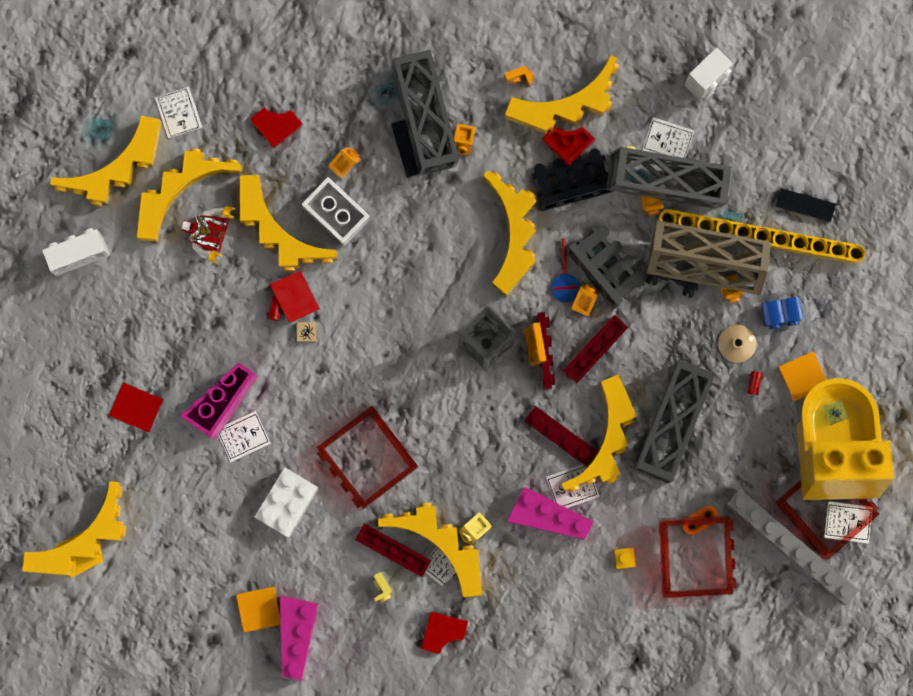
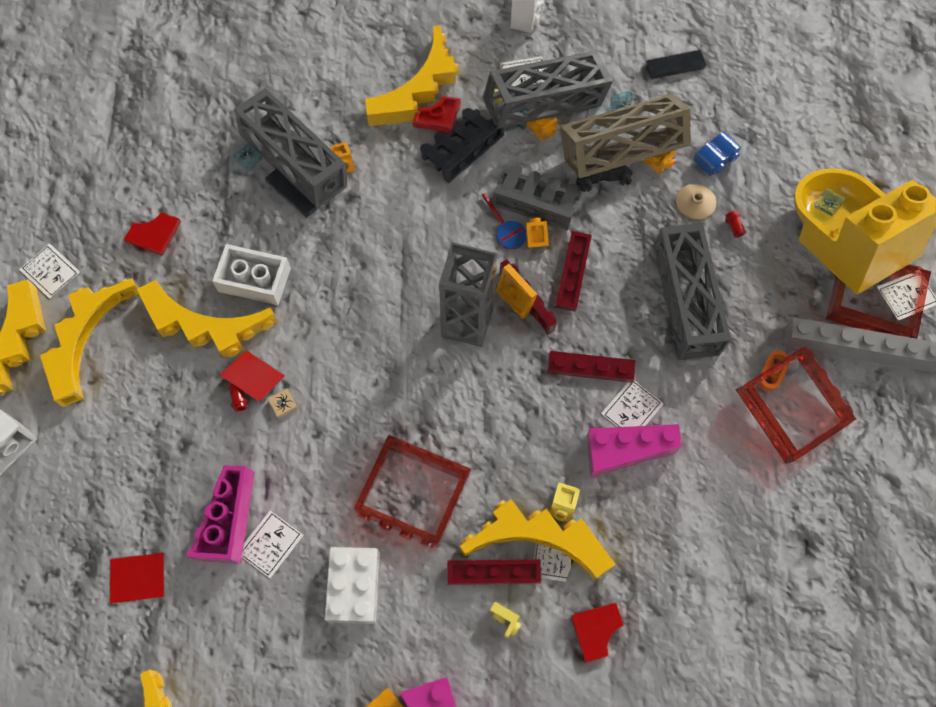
camera: 30 degrees left, 15 degrees down
(209, 232) = (131, 357): torso -> none
(344, 161) = (237, 230): light orange bracket -> none
(517, 74) = (359, 83): light orange bracket -> none
(517, 207) = (439, 204): yellow arch -> none
(618, 412) = (633, 315): yellow arch -> none
(625, 558) = (728, 447): yellow plate -> none
(771, 234) = (690, 93): yellow beam -> none
(802, 375) = (772, 197): light orange tile -> none

